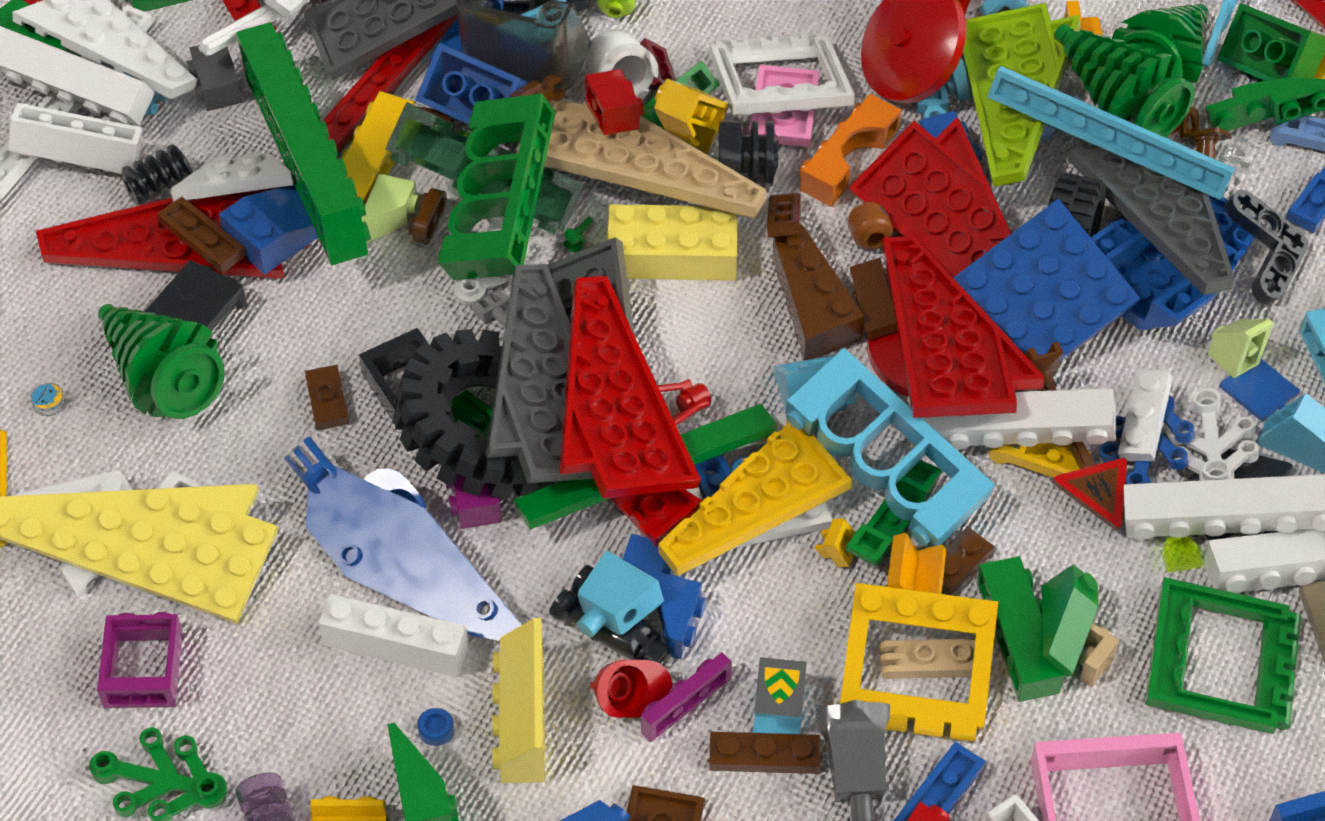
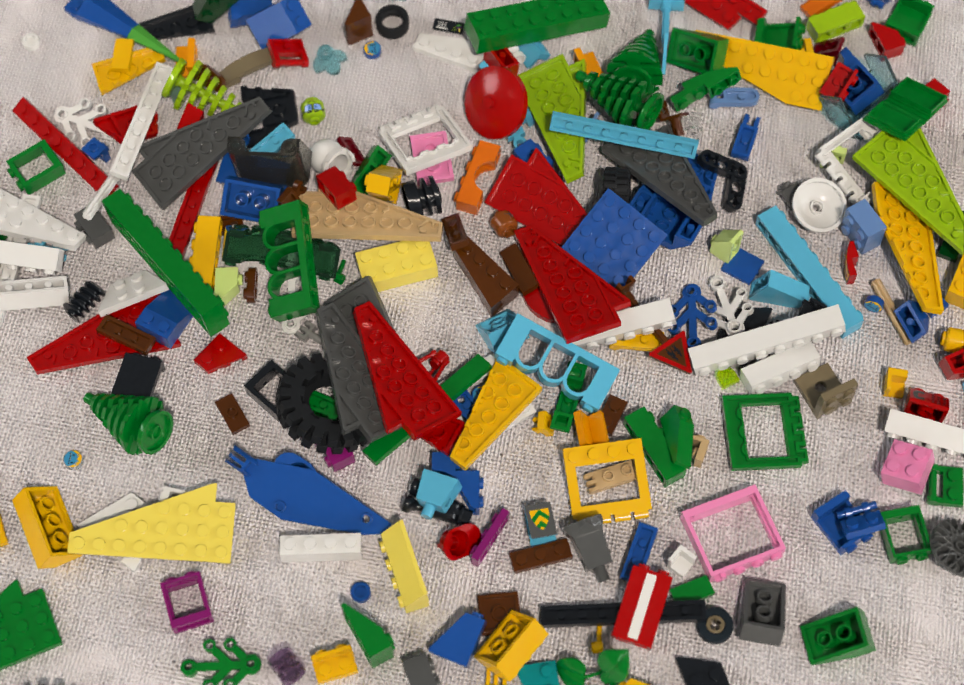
camera: 15 degrees left, 10 degrees up
(338, 305) = (218, 355): none -> red wing
(1145, 415) = (687, 302): white plate -> none

